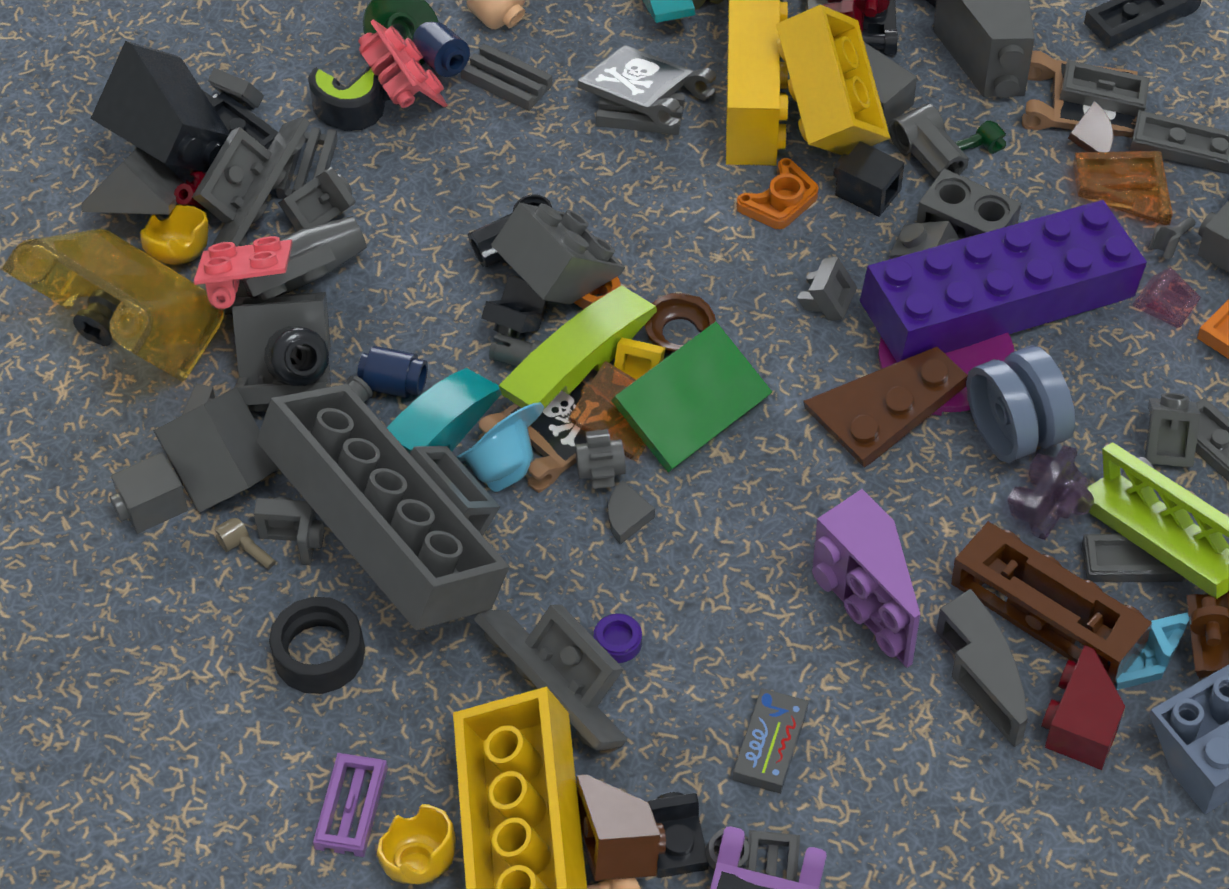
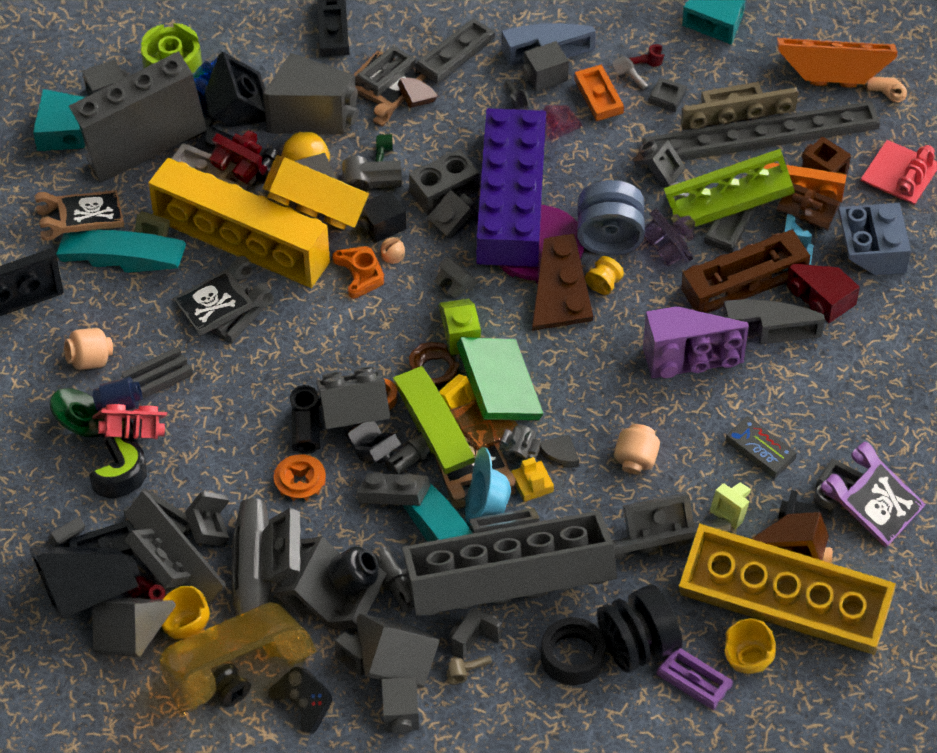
camera: 65 degrees left, 0 degrees up
(120, 398) = (306, 694): none -> black piece
(225, 265) = (272, 566): coral hinge -> none
(369, 695) = (639, 628): none -> black wheel
(393, 371) = (381, 530): dark blue brick -> none
(422, 254) = (299, 465): none -> orange gear
(458, 357) = (393, 489): none -> dark grey plate
(563, 499) = (532, 480): none -> yellow tile
(619, 636) = (648, 489): dark purple tile -> none
(648, 737) = (731, 503): none -> yellowish green tile
(671, 590) = (637, 448): none -> light nougat head
(758, 320) = (459, 321): none -> lime slope
(831, 214) = (395, 250): none -> light nougat hinge
(930, 66) = (304, 145): none -> yellow hair
(935, 444) = (604, 275): none -> yellow wheel
(1126, 182) = (465, 96): clear orange wing -> none

